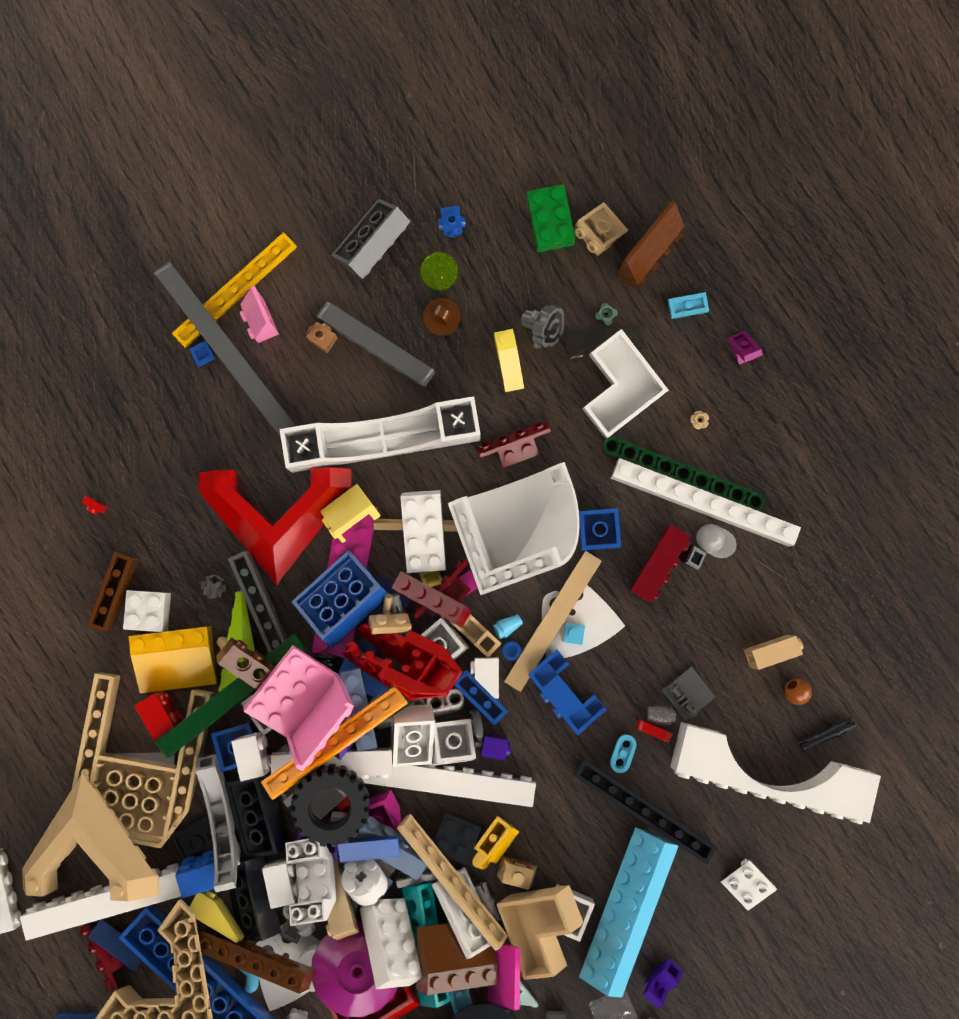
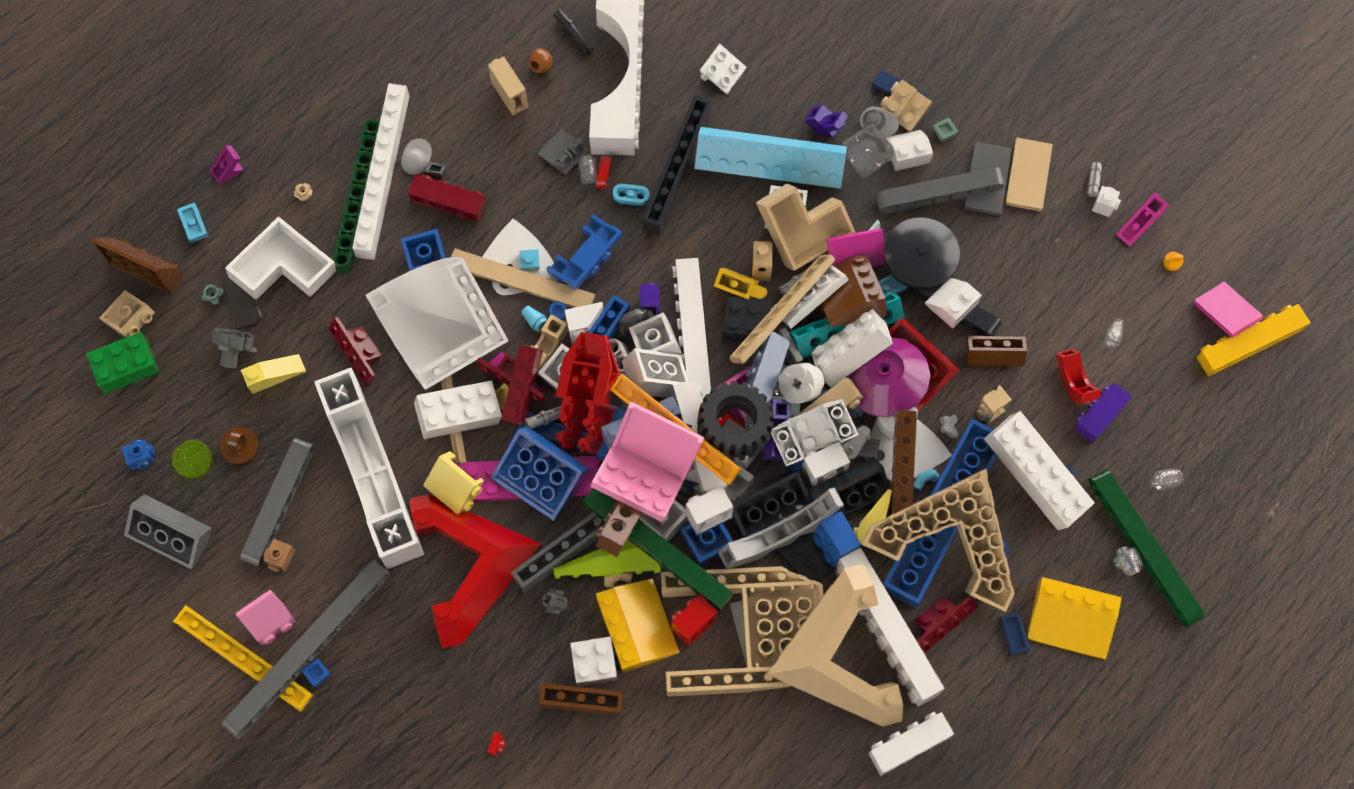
camera: 100 degrees left, 15 degrees down
(108, 939) = (928, 607): dark blue tile -> none
(369, 848) = (769, 382): tile -> none
(389, 622) = (553, 417): tan plate -> none

